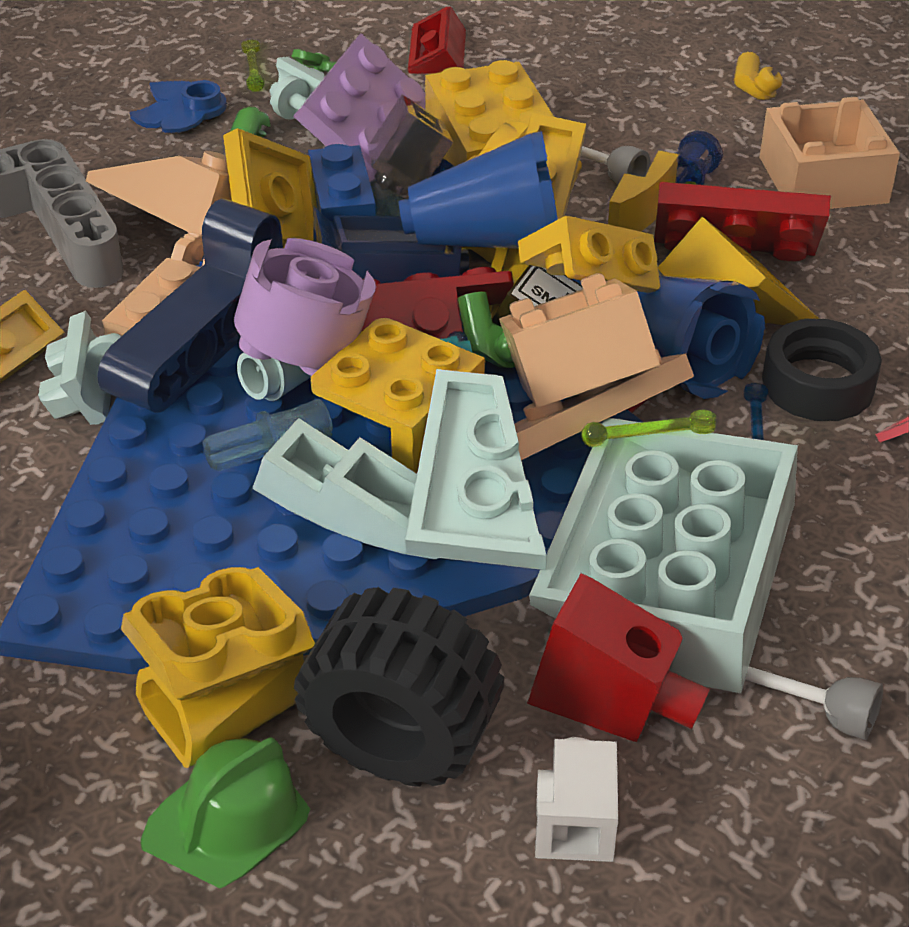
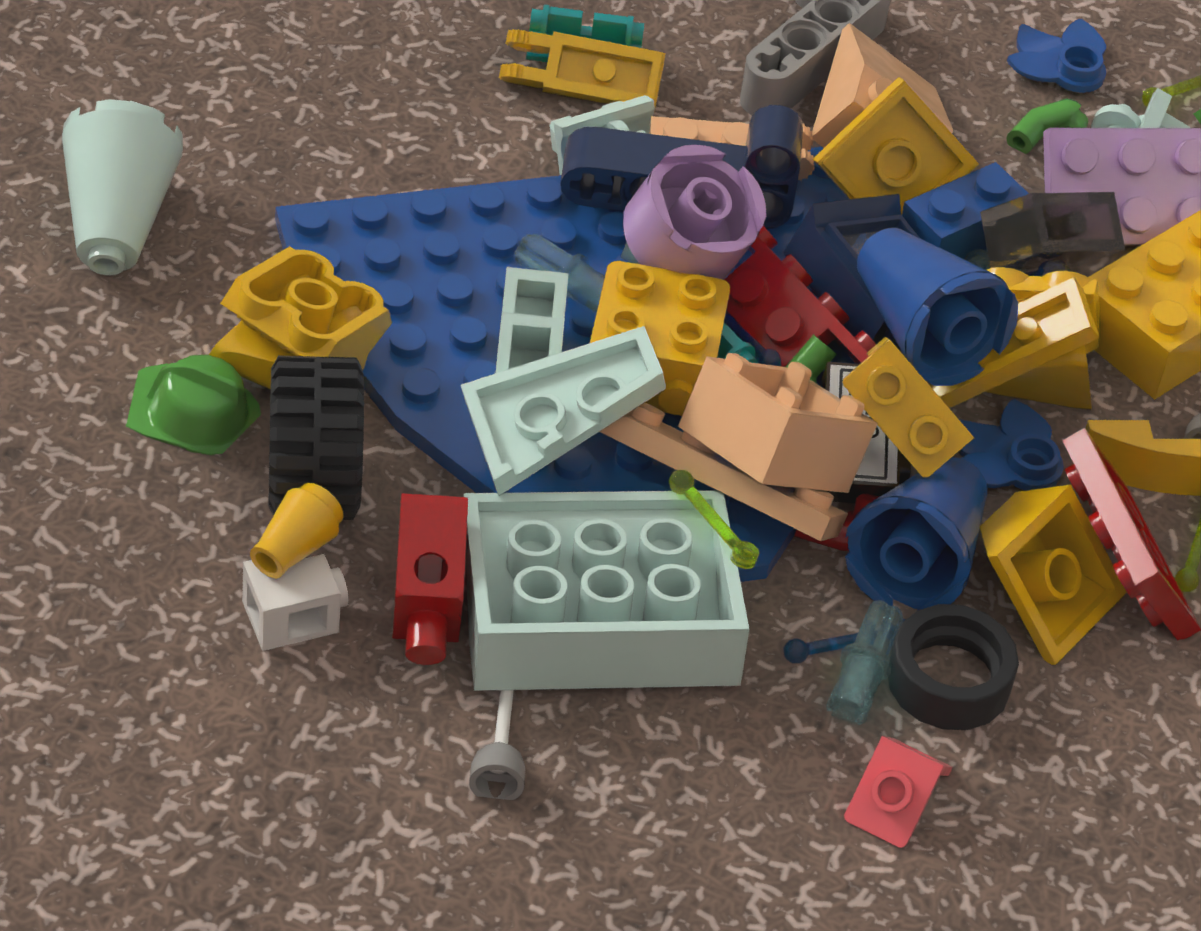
camera: 60 degrees right, 5 degrees up
(533, 739) = (299, 527): none -> yellow cone
(800, 416) = (865, 664): none -> clear light blue axle

